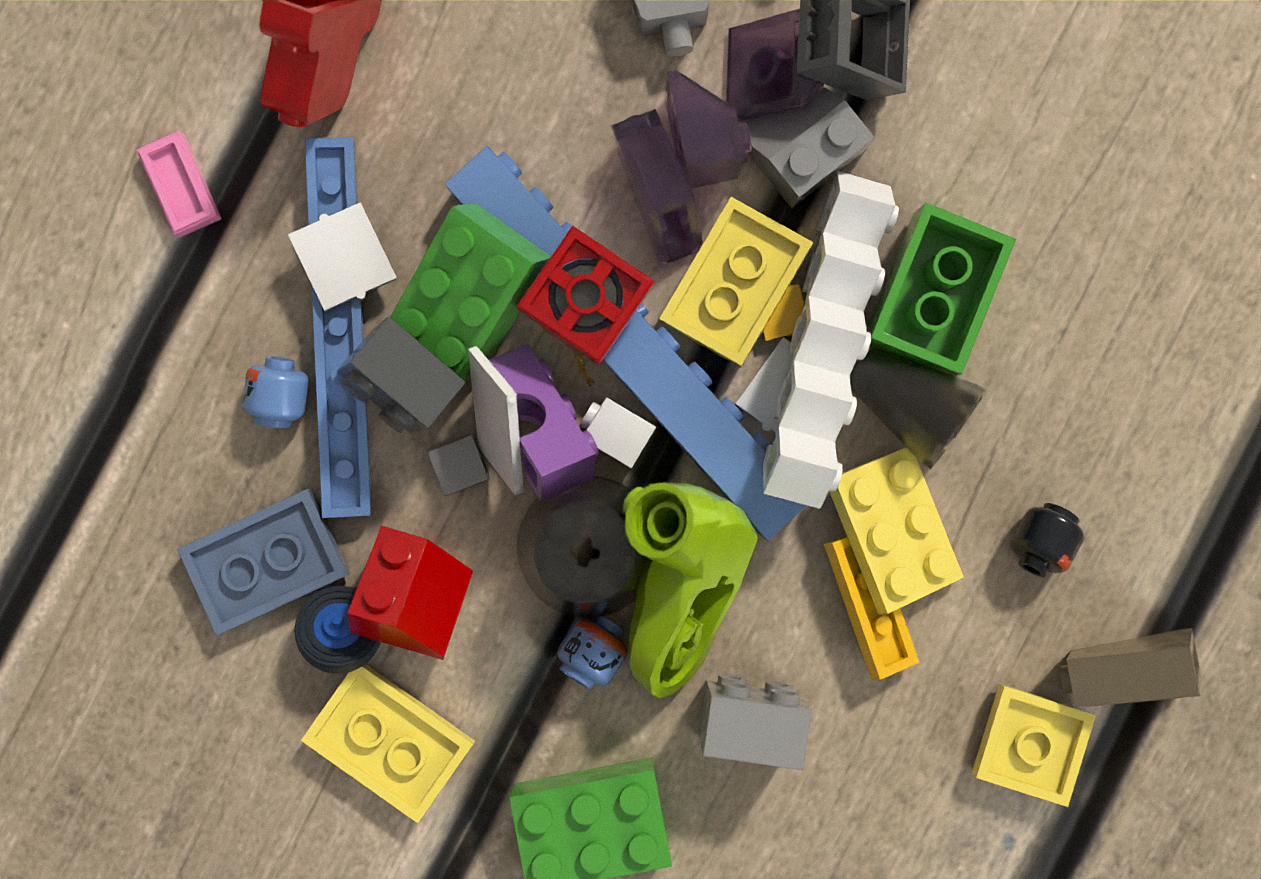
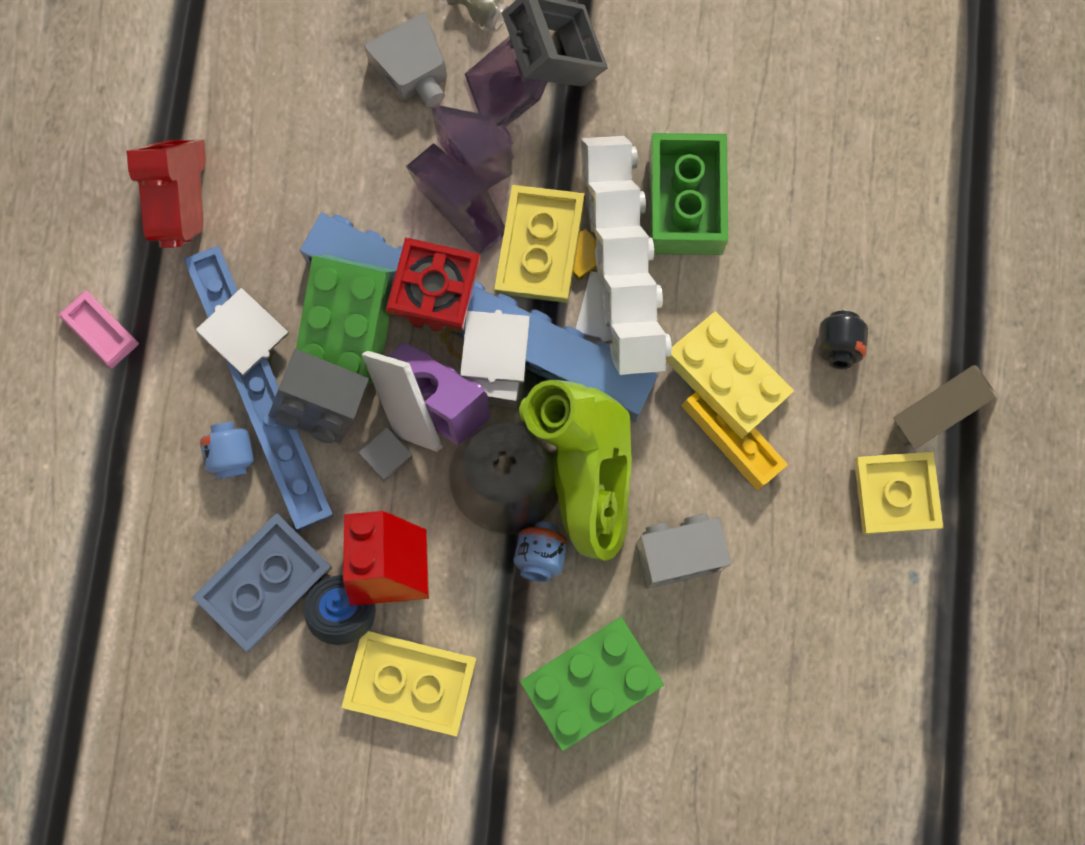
camera: 25 degrees left, 10 degrees down
(631, 394) = (495, 346): none -> white piece
(807, 144) = (553, 128): light grey slope -> none
(915, 401) = (705, 276): clear smoke cone -> none

